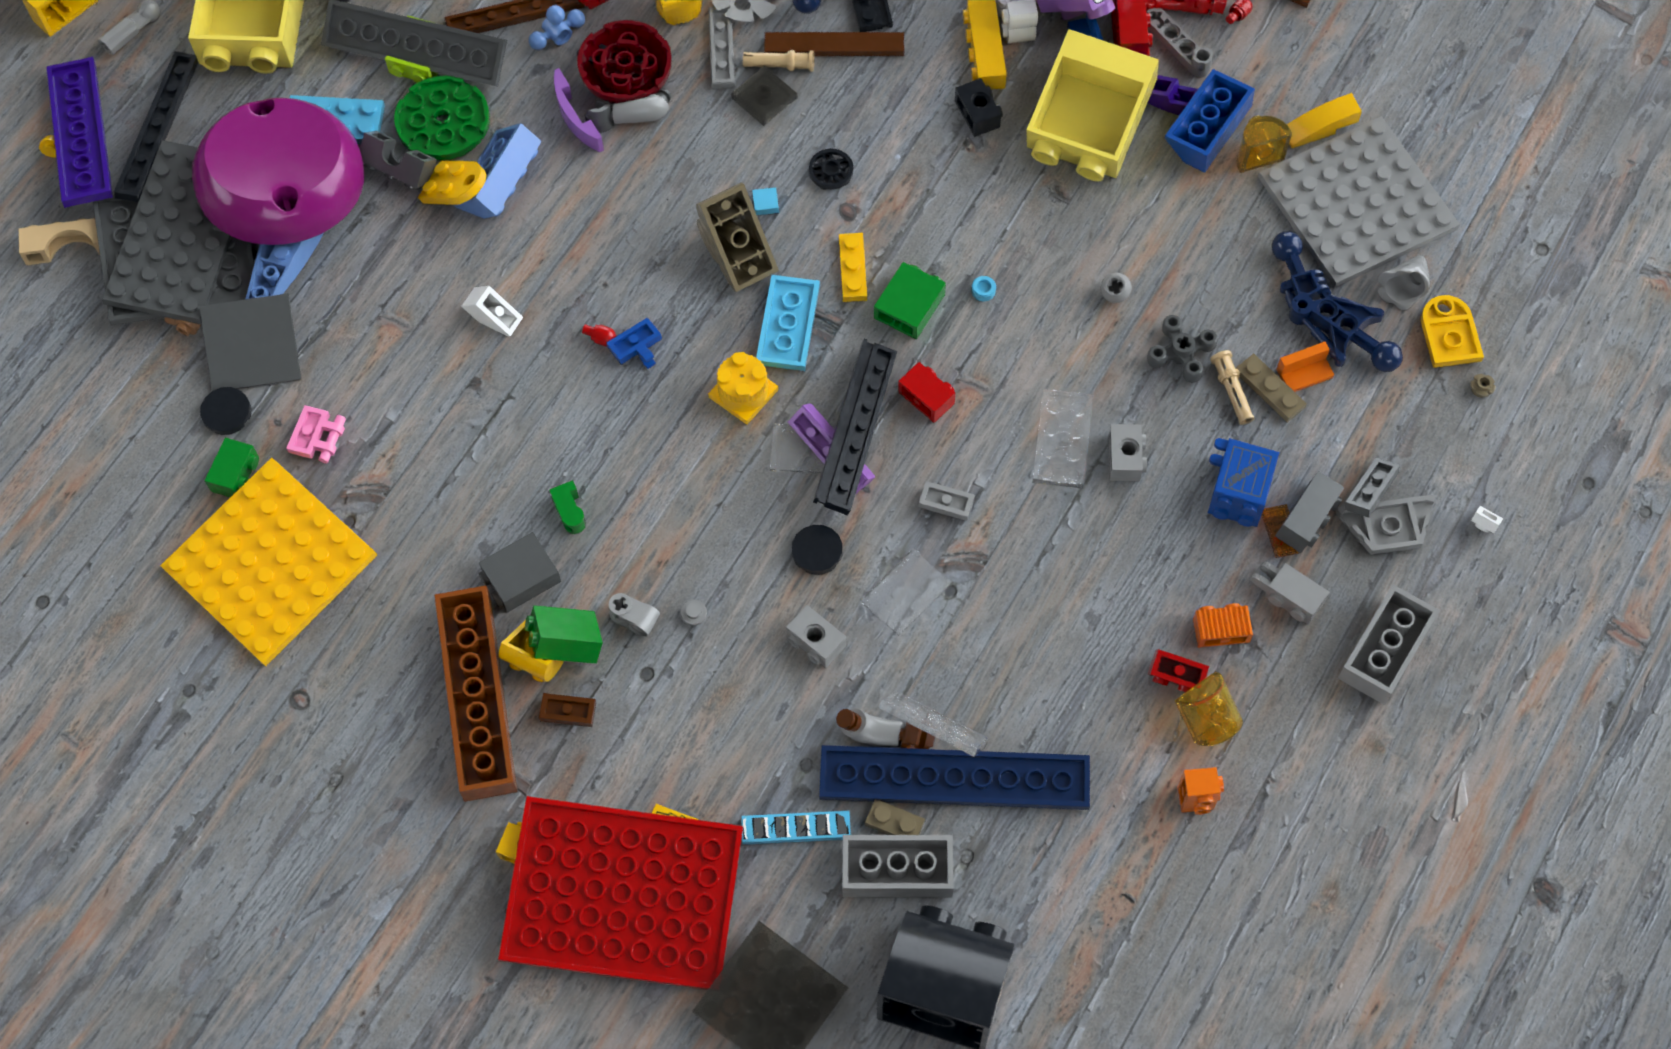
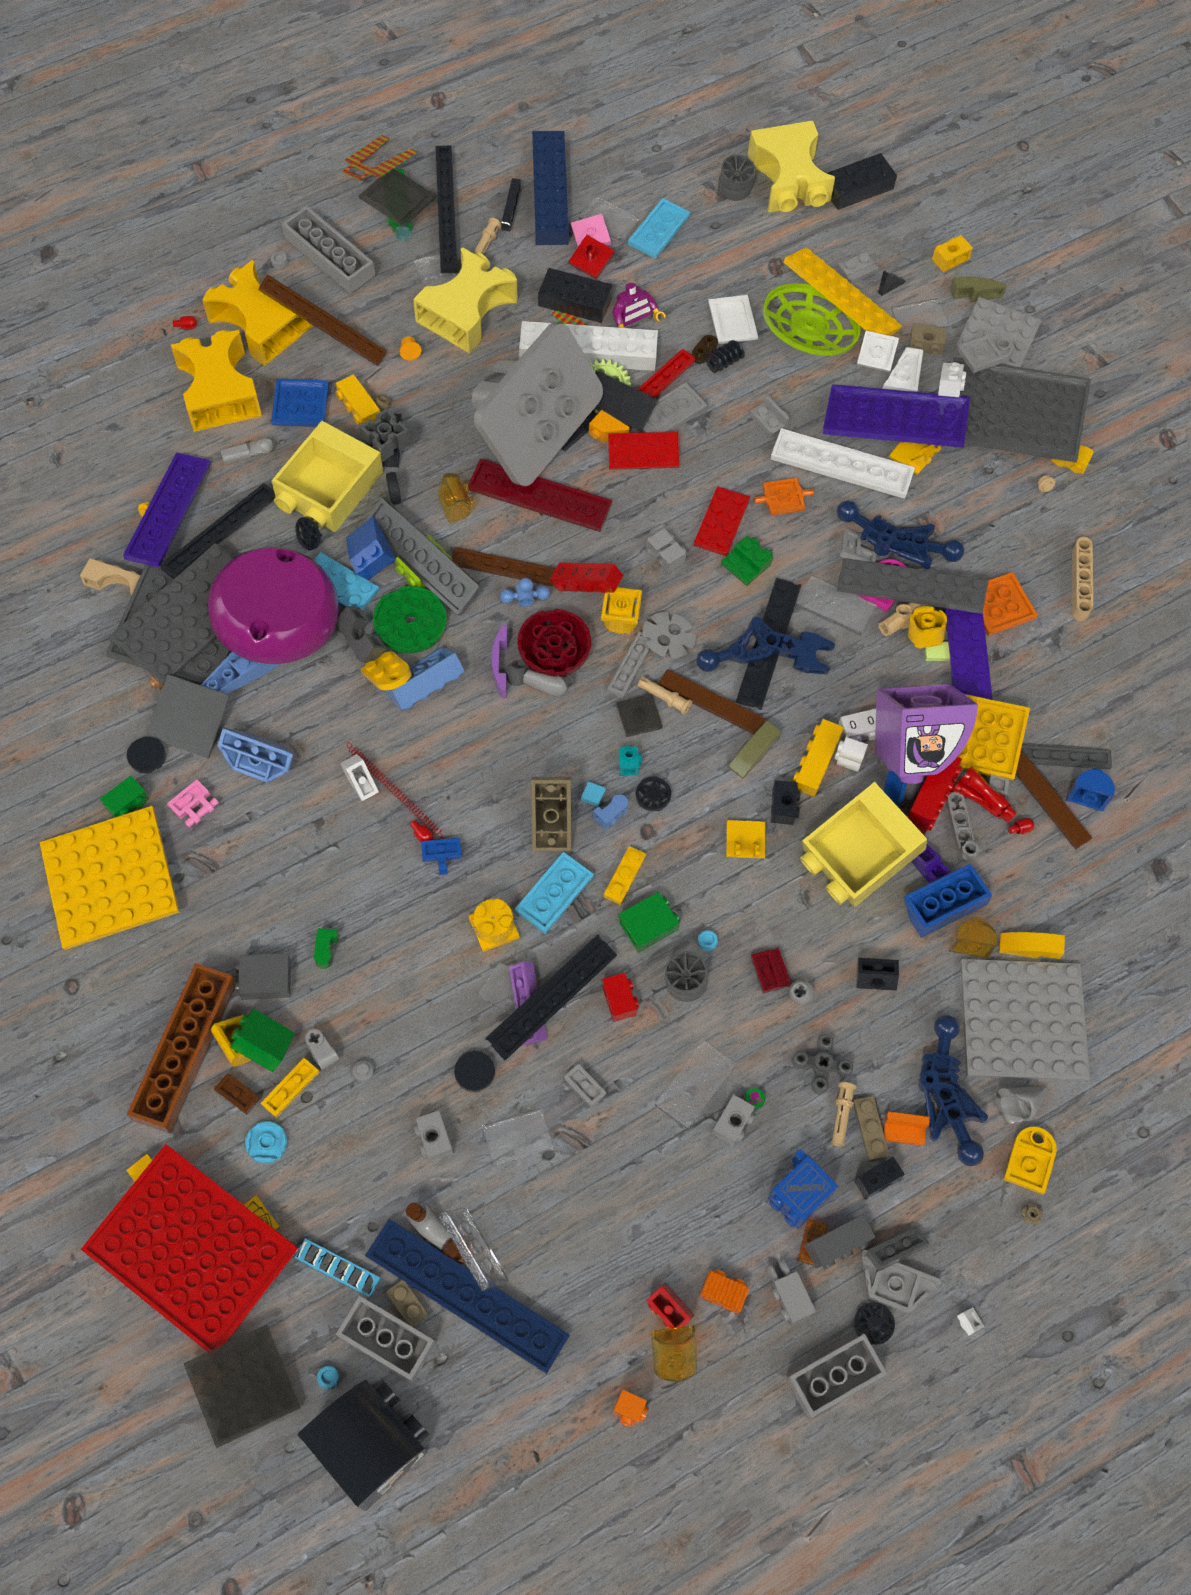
camera: 25 degrees right, 0 degrees up
(264, 79) = (308, 533): none -> black wheel
(347, 63) = (369, 549): none -> blue slope
(357, 346) = (254, 755): none -> medium blue wedge
(596, 322) = (395, 788): none -> red piece
(623, 672) = (290, 1087): none -> yellow plate
(633, 743) = (266, 1142): none -> medium azure tile
(783, 146) = (629, 760): none -> teal brick
(796, 215) = (611, 812): none -> medium blue leg
(857, 942) = (328, 1377): none -> medium azure tile
(913, 68) = (755, 749): none -> olive slope
(959, 165) = (745, 839): none -> yellow plate
(986, 332) = (686, 976): none -> dark grey wheel
(1069, 283) = (770, 970): none -> dark red plate
(1133, 416) = (755, 1097): none -> green tile
(1184, 228) = (877, 974): none -> black brick
(1310, 429) = (879, 1178): none -> black brick
(1391, 573) = (874, 1323): none -> black wheel

